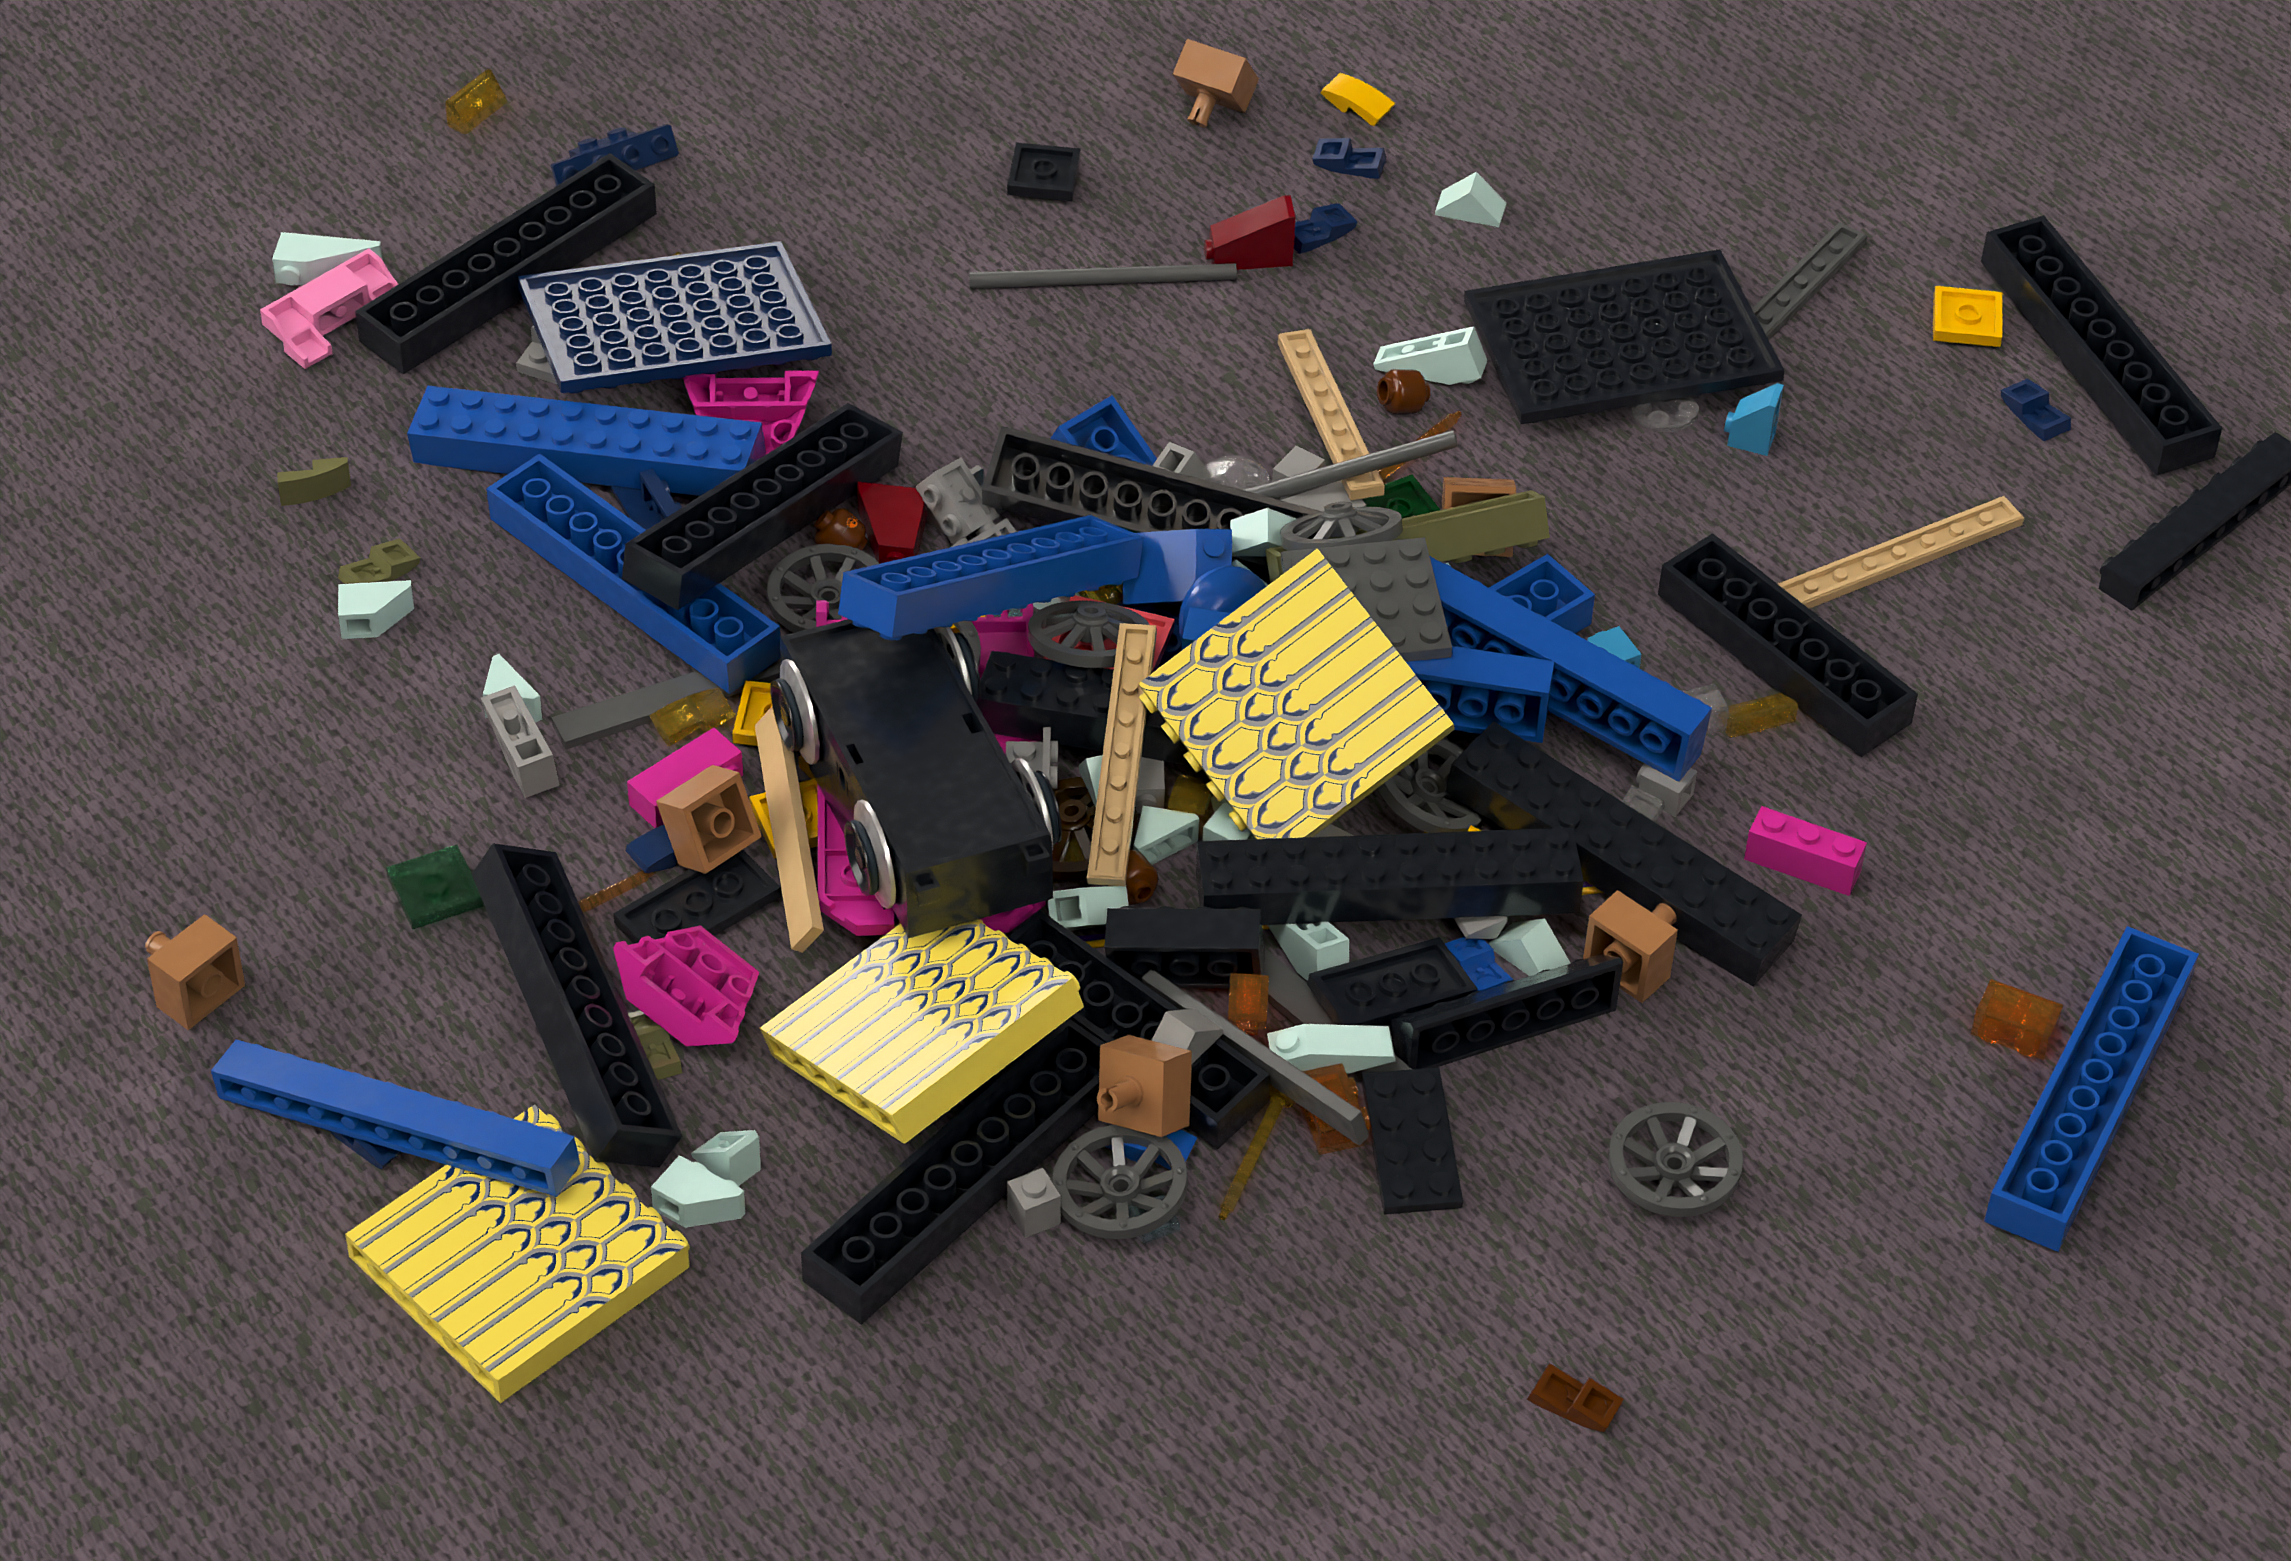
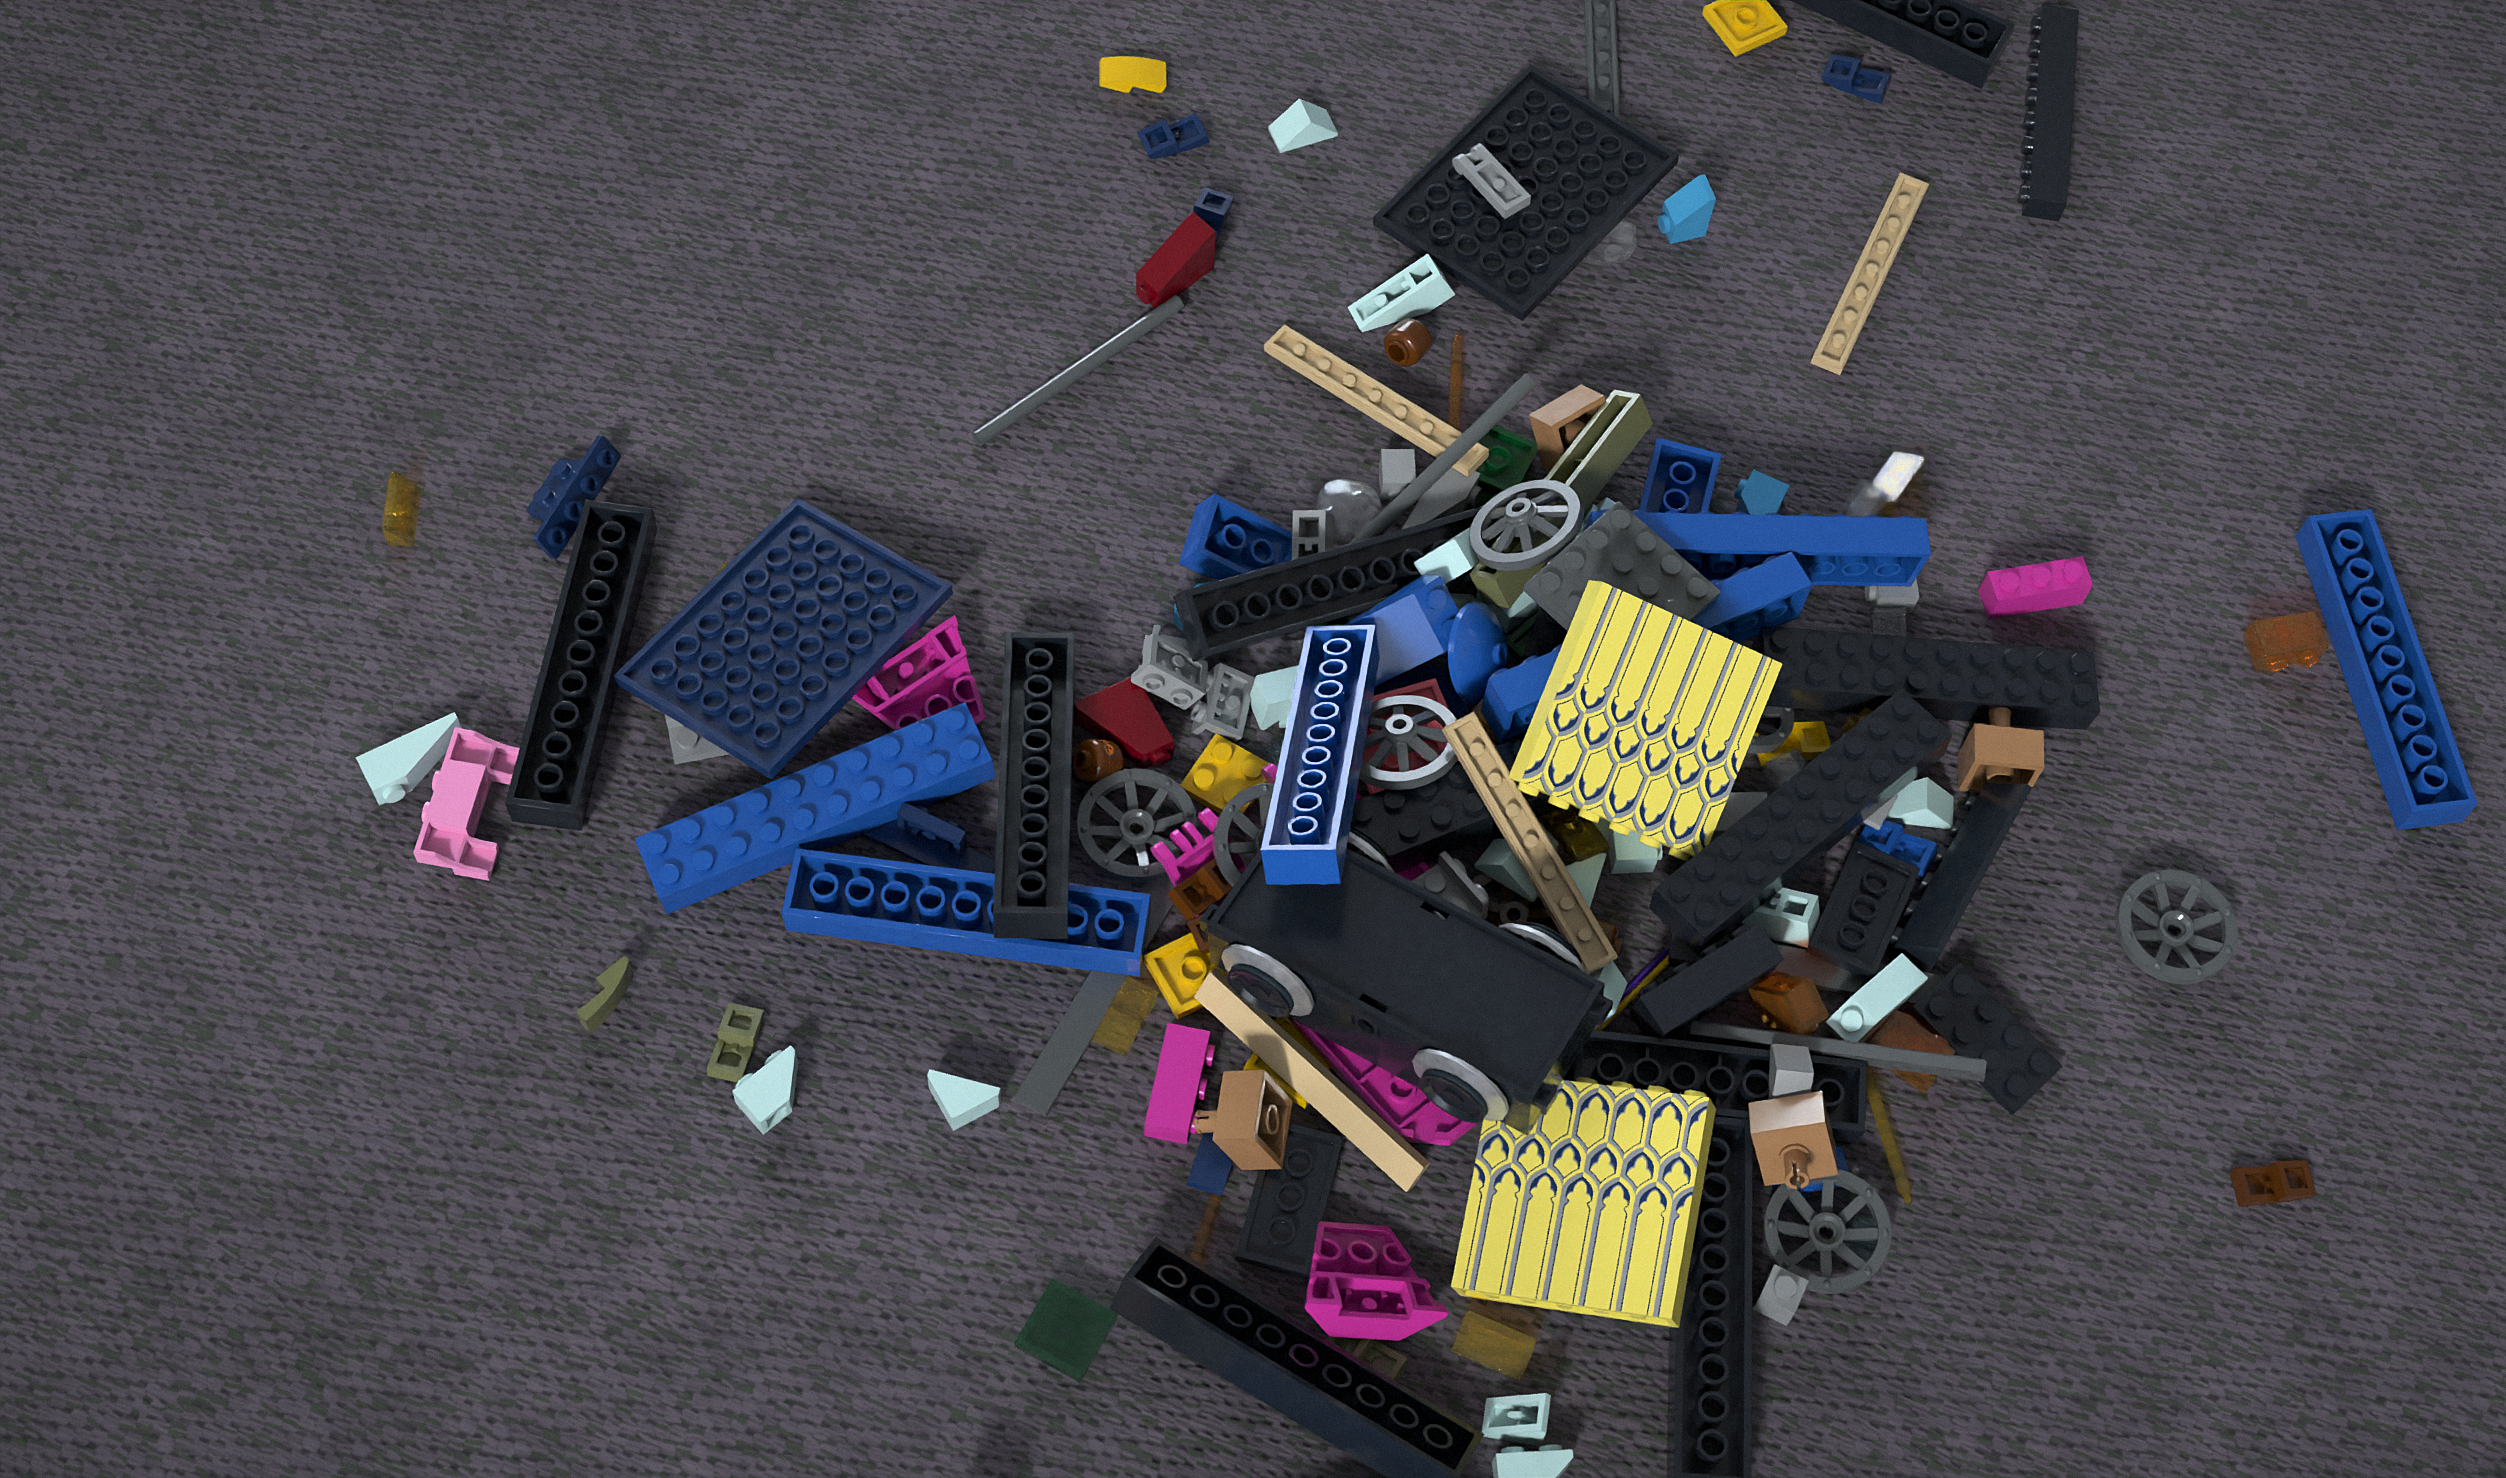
camera: 40 degrees left, 15 degrees up
(521, 741) = (1020, 1141): light grey slope -> none
(762, 1098) = (1494, 1345): none -> clear yellow slope
(1043, 171) = (947, 294): black plate -> none
(1214, 79) = (1020, 125): medium nougat brick -> none
(1590, 309) = (1492, 180): none -> light grey plate
(1787, 644) = (1875, 408): black brick -> none

